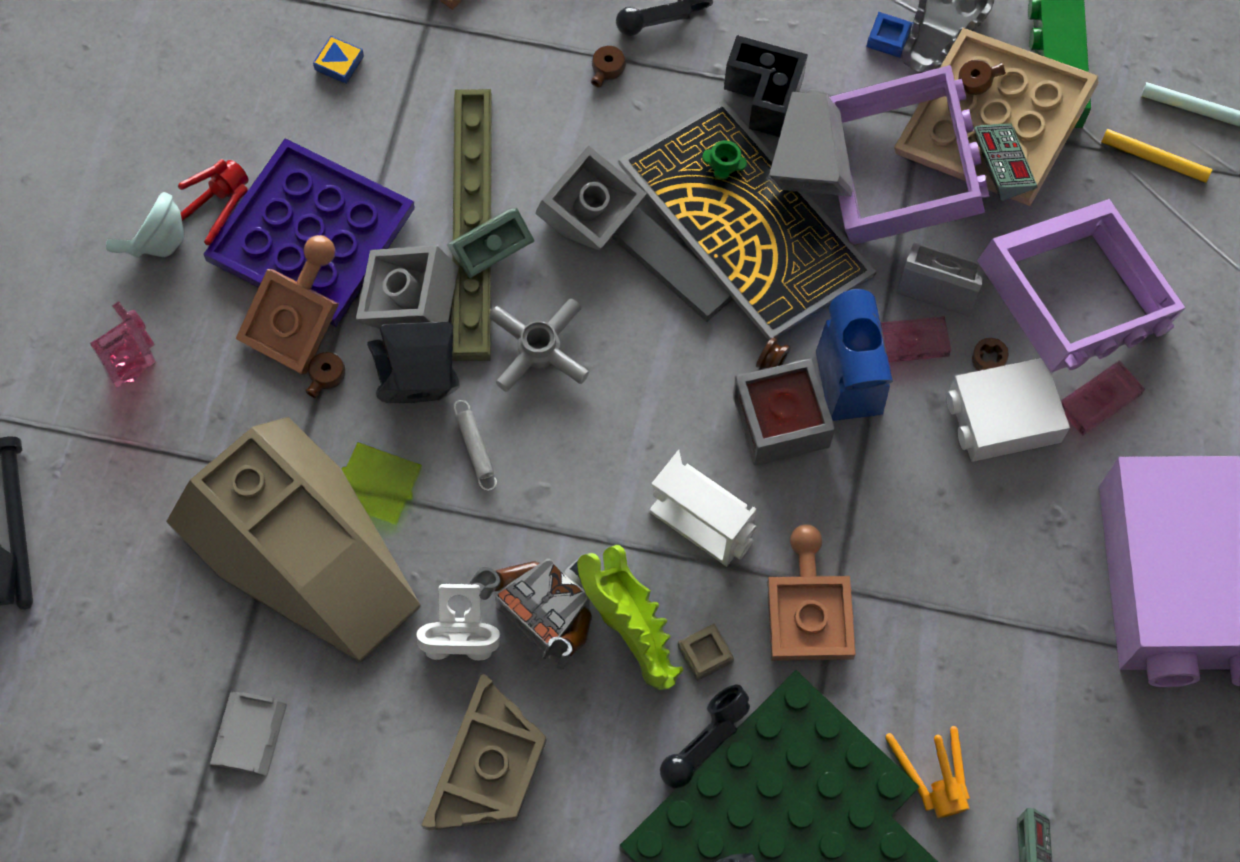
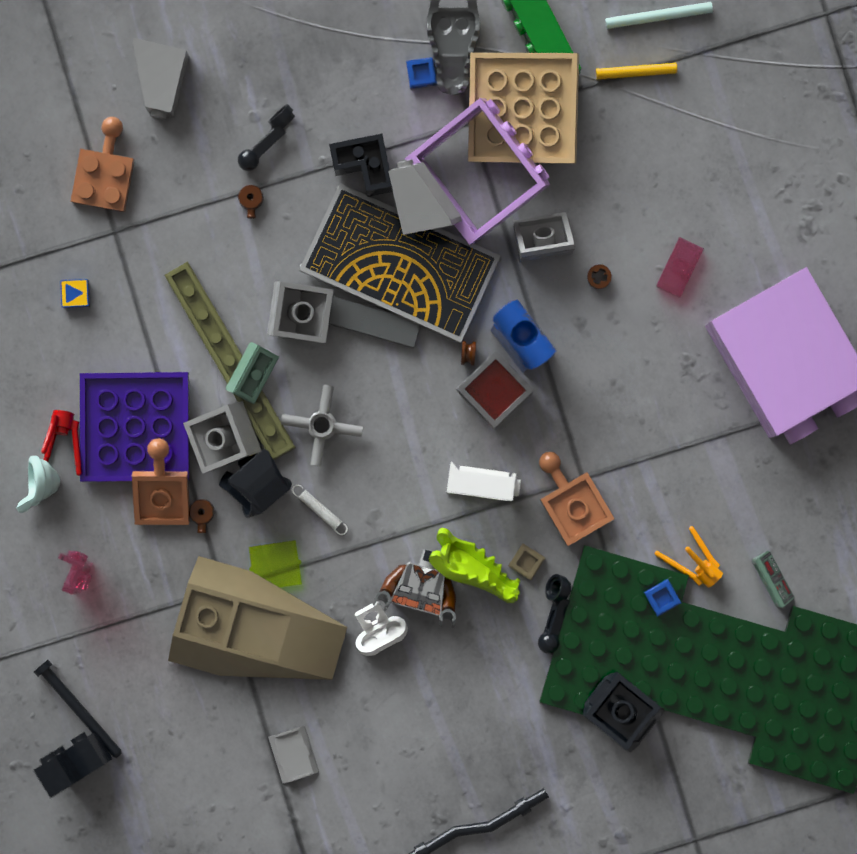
camera: 25 degrees left, 20 degrees up
(487, 764) = (440, 697): dark tan wing -> none
(728, 151) = (365, 225): green plate -> none
(867, 792) = (662, 597): none -> blue tile
(916, 339) = (545, 292): clear pink plate -> none
(979, 76) = (503, 83): reddish brown piece -> none
(1005, 160) = (546, 144): slope -> none
(1007, 409) = (627, 310): white brick -> none
(1125, 255) = (659, 166): lavender window -> none

